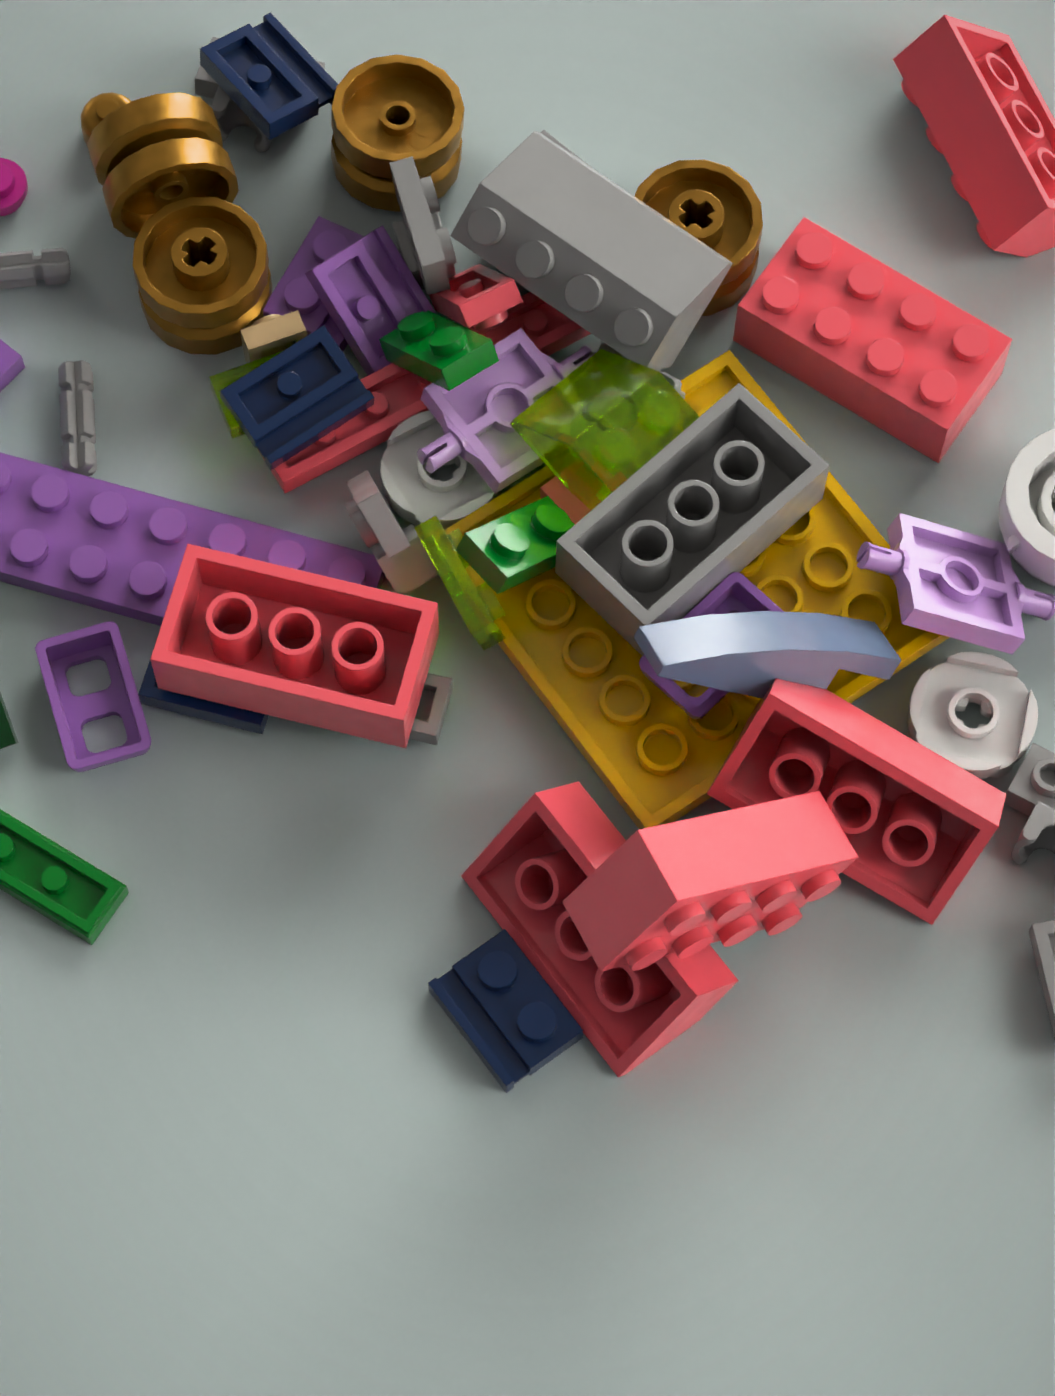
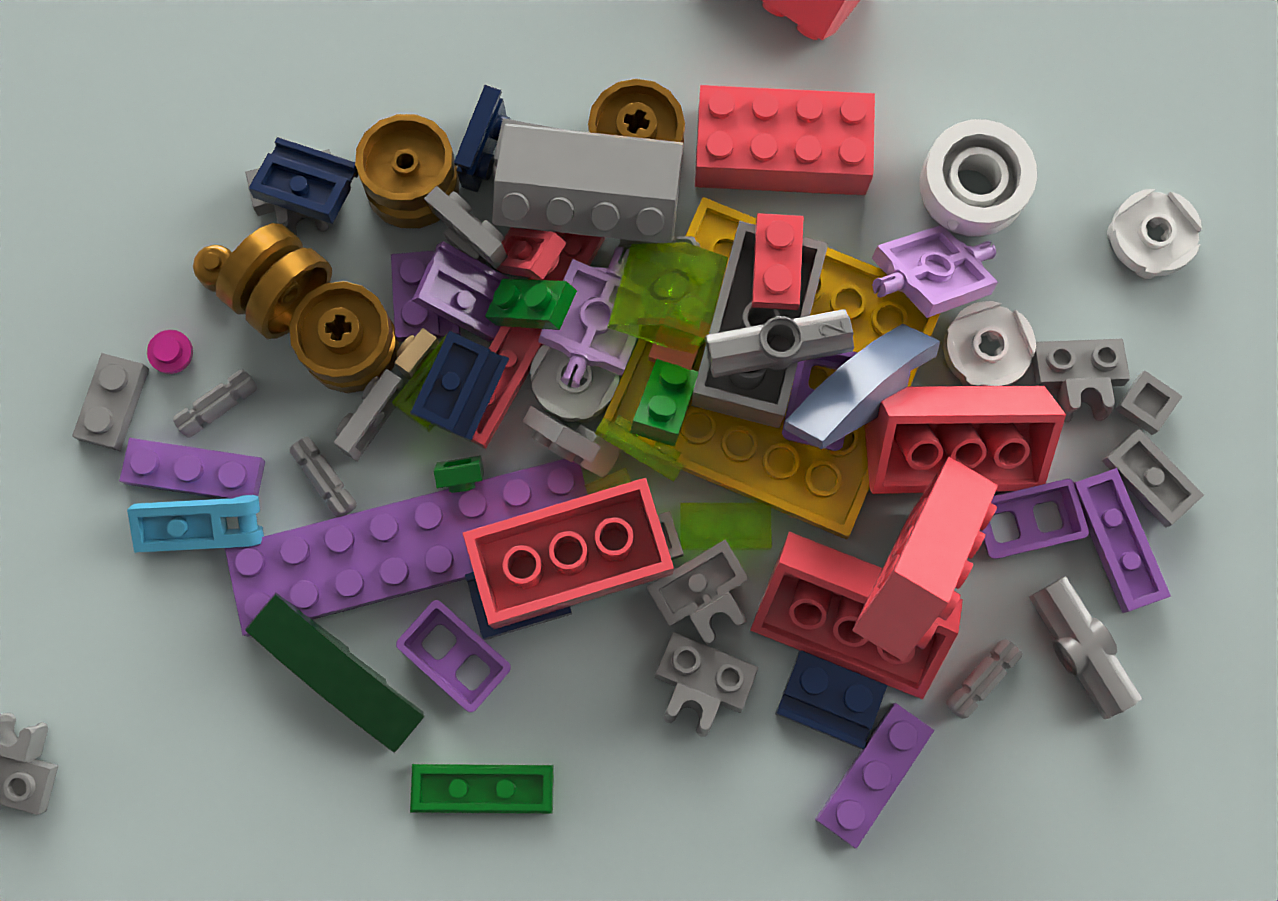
camera: 30 degrees left, 10 degrees up
(173, 380) = (360, 428): none -> light grey plate
(234, 500) = (459, 474): none -> green plate
(363, 896) = (703, 680): none -> light grey plate
(430, 792) = (702, 590): none -> light grey plate
(500, 135) = (476, 151): none -> dark blue plate
(500, 1127) = (874, 775): none -> medium lavender plate
(509, 739) = (741, 524): none -> clear neon green plate
(650, 521) = (809, 339): none -> light grey piece
(708, 1095) = (984, 678): none -> light grey axle
(751, 449) = (777, 261): none -> coral plate
(857, 1130) = (1085, 648): none -> light grey piece
(893, 924) = (1021, 505): none -> medium lavender piece
(986, 1033) = (1121, 541): none -> medium lavender plate

